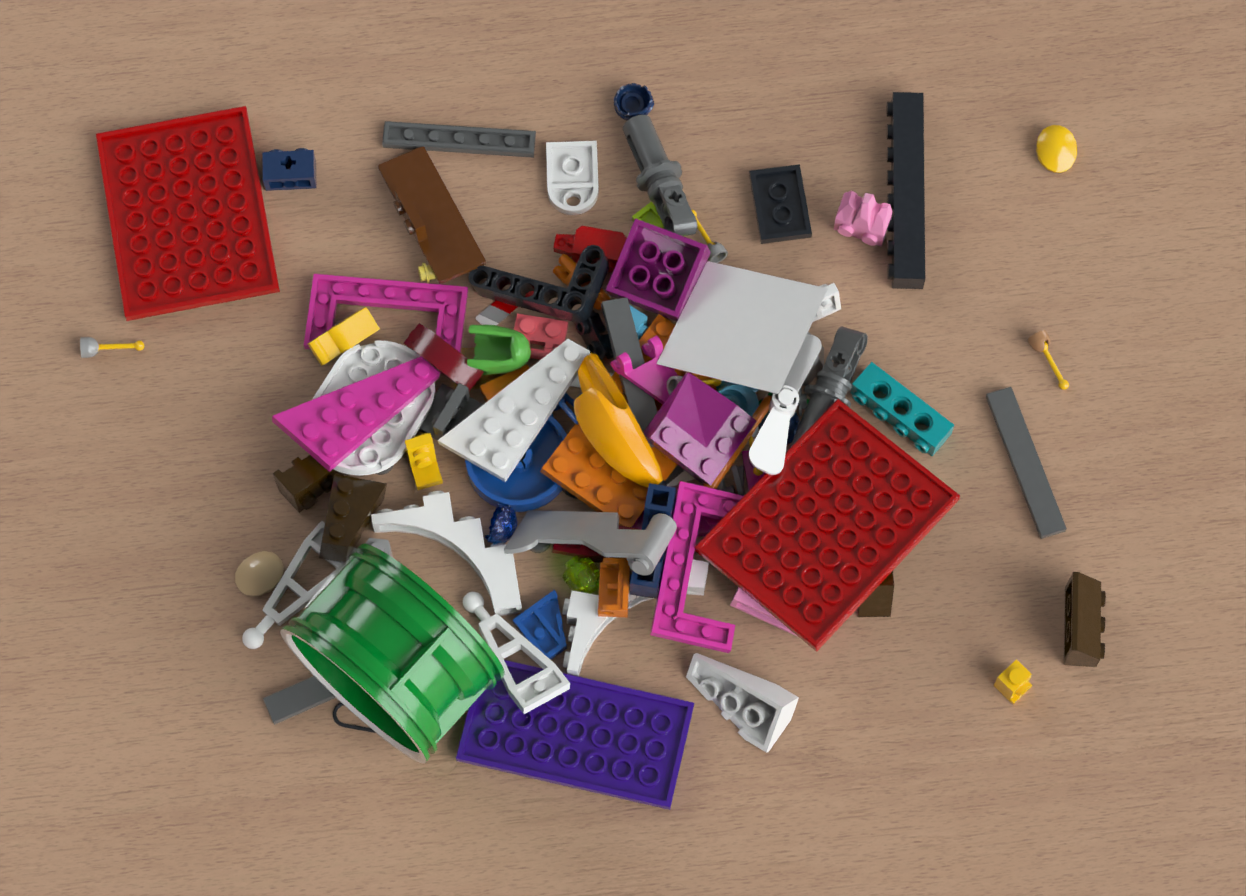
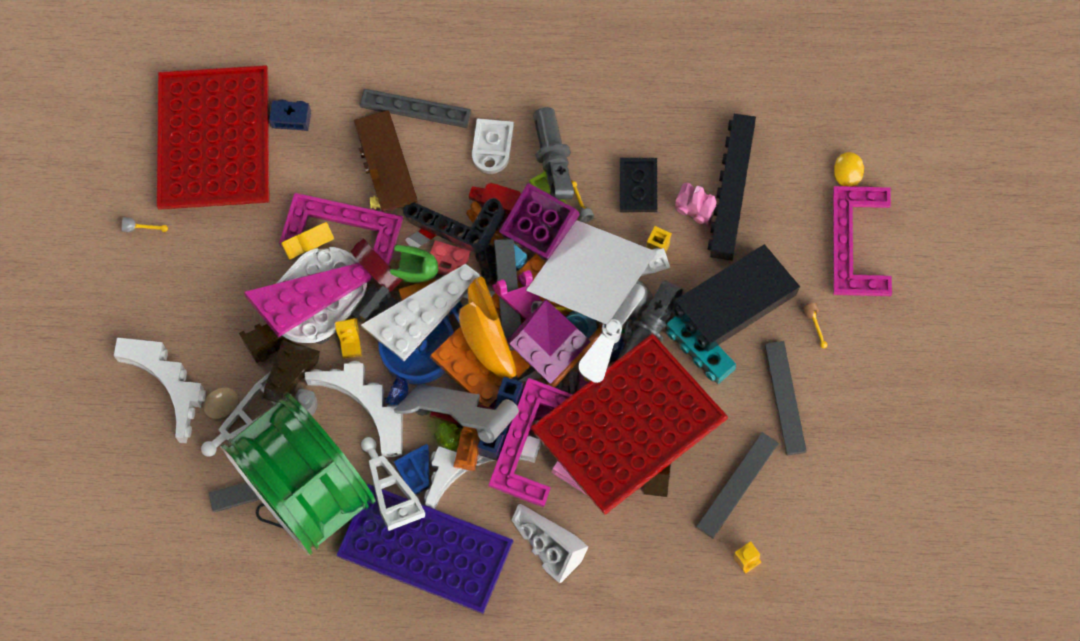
camera: 15 degrees right, 0 degrees up
(153, 524) = (151, 357): none -> white arch
(633, 101) = (544, 96): dark blue hair -> none
(822, 271) = (659, 239): none -> yellow brick
(938, 337) = (735, 298): none -> black brick
(982, 588) = (737, 485): none -> dark grey tile
(1077, 297) = (843, 279): none -> dark pink plate
(1083, 621) = (806, 520): dark brown slope -> none

